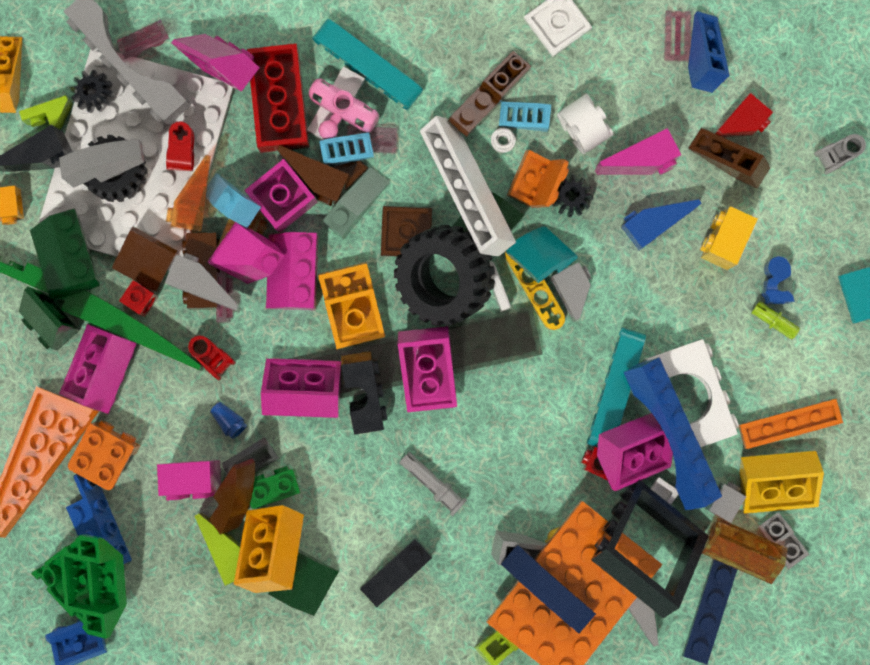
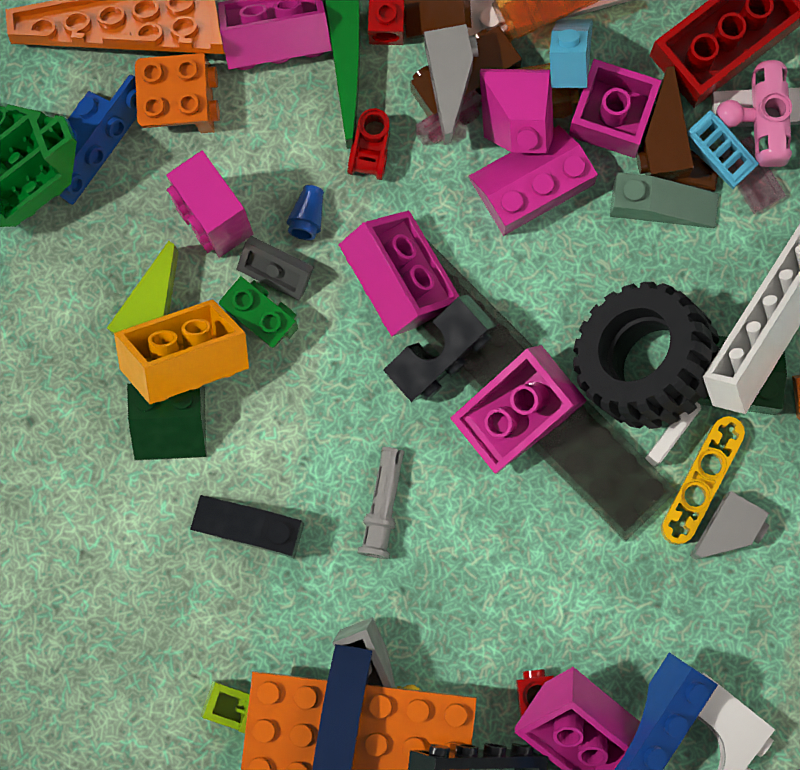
camera: 65 degrees right, 5 degrees down
(234, 497) = (219, 271): reddish brown slope -> none
(351, 305) = (537, 272): light orange slope -> none
(400, 225) = (672, 266): reddish brown tile -> none
(541, 253) = (749, 460): teal slope -> none
(617, 390) = (643, 658): teal beam -> none

